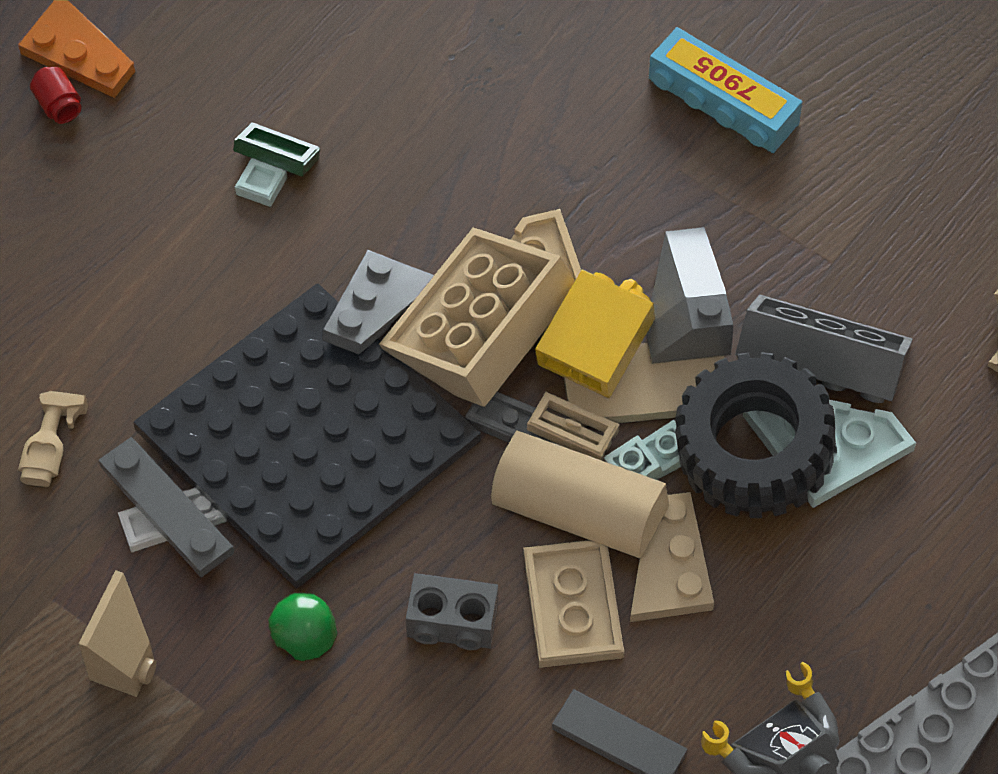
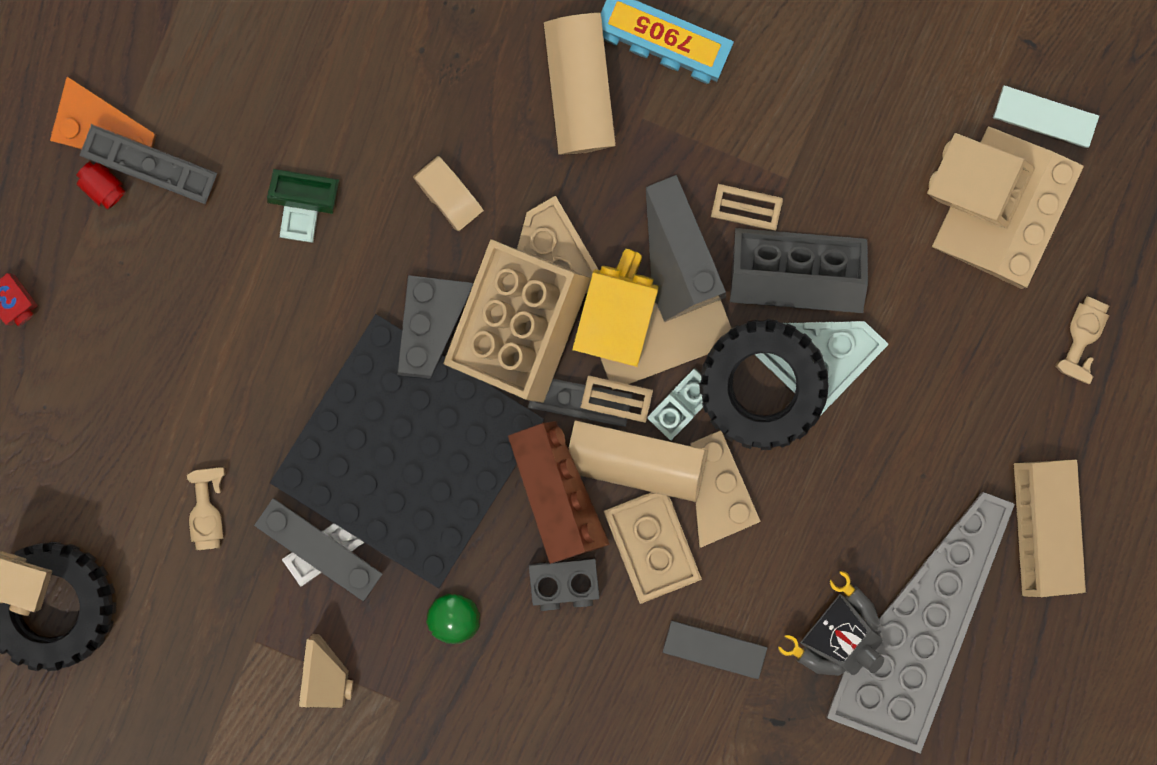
camera: 15 degrees left, 30 degrees up
(116, 81) = (148, 164): none -> dark grey plate
(440, 184) = (448, 193): none -> tan slope
(472, 498) = (556, 493): none -> copper wedge
(617, 107) = (579, 83): none -> tan brick
(774, 280) = (745, 207): none -> tan tile

